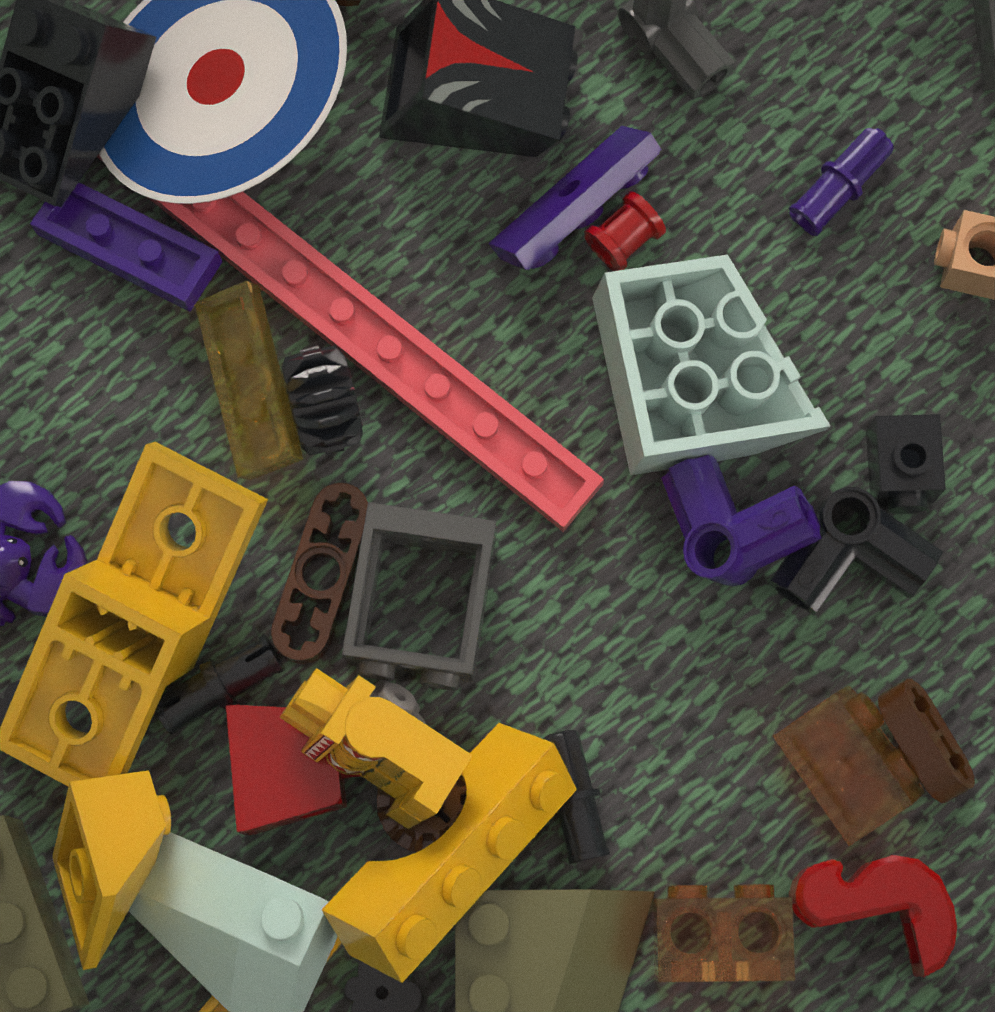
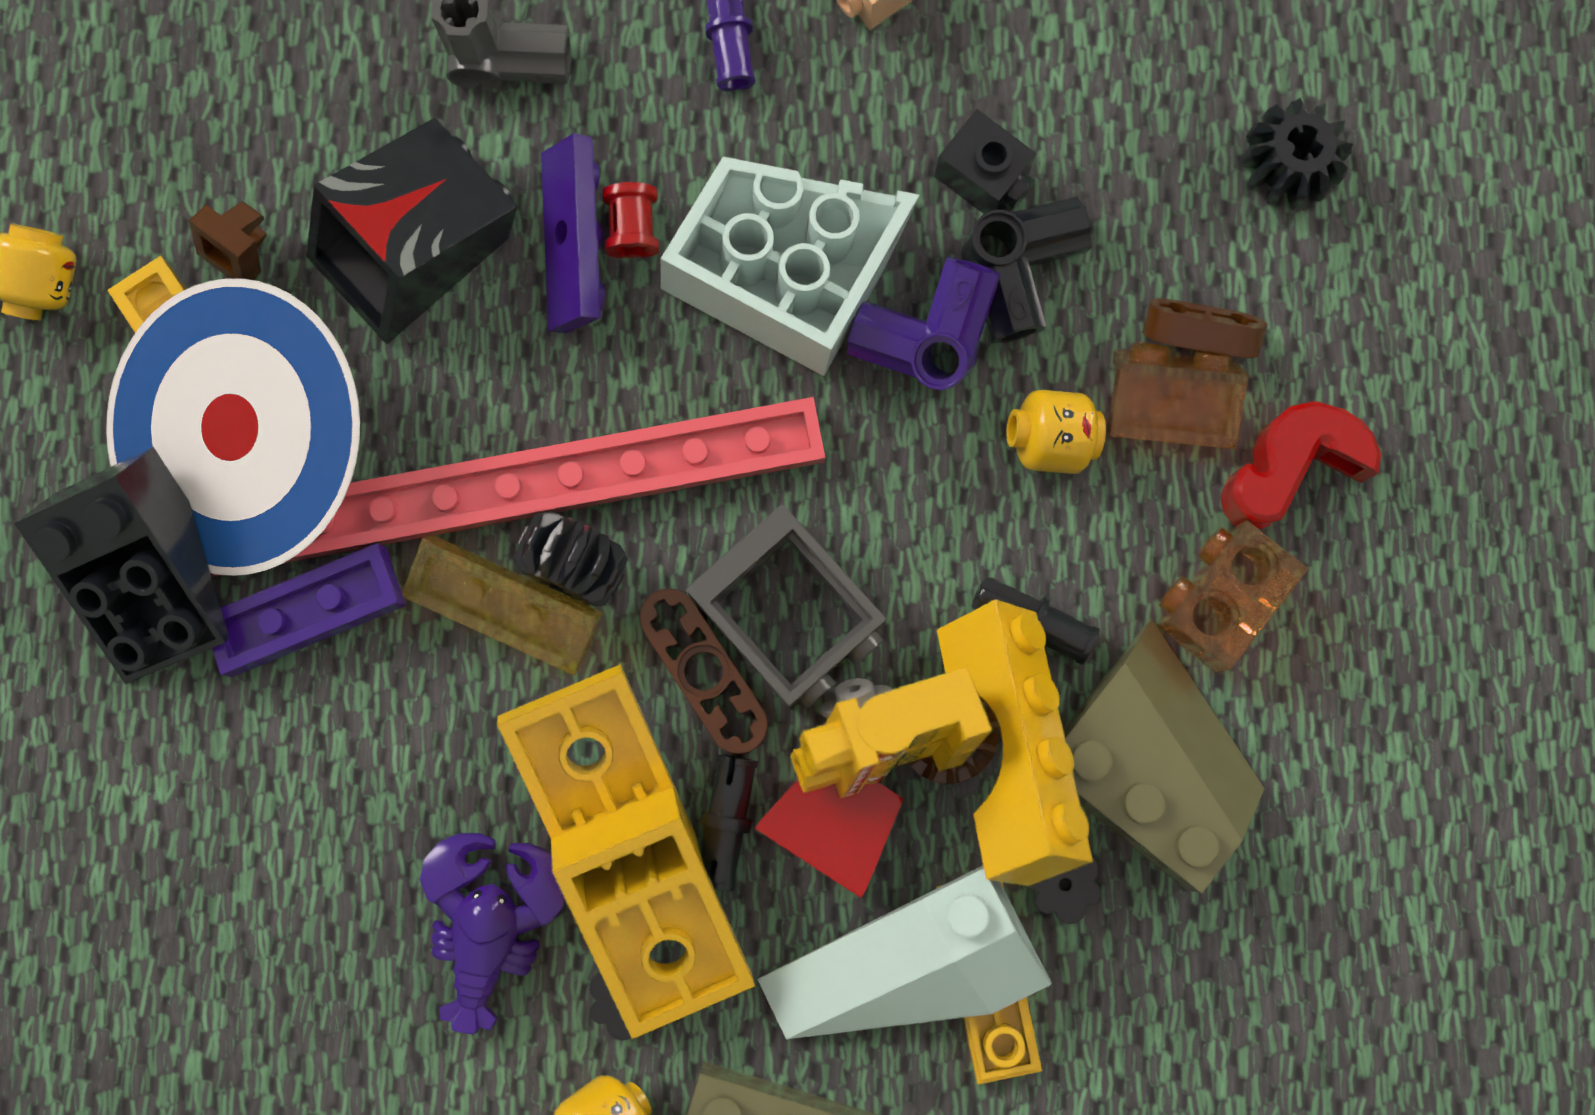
camera: 55 degrees left, 5 degrees up
(106, 853) = (794, 1015): yellow slope -> none
(738, 690) = (1056, 431): none -> yellow head

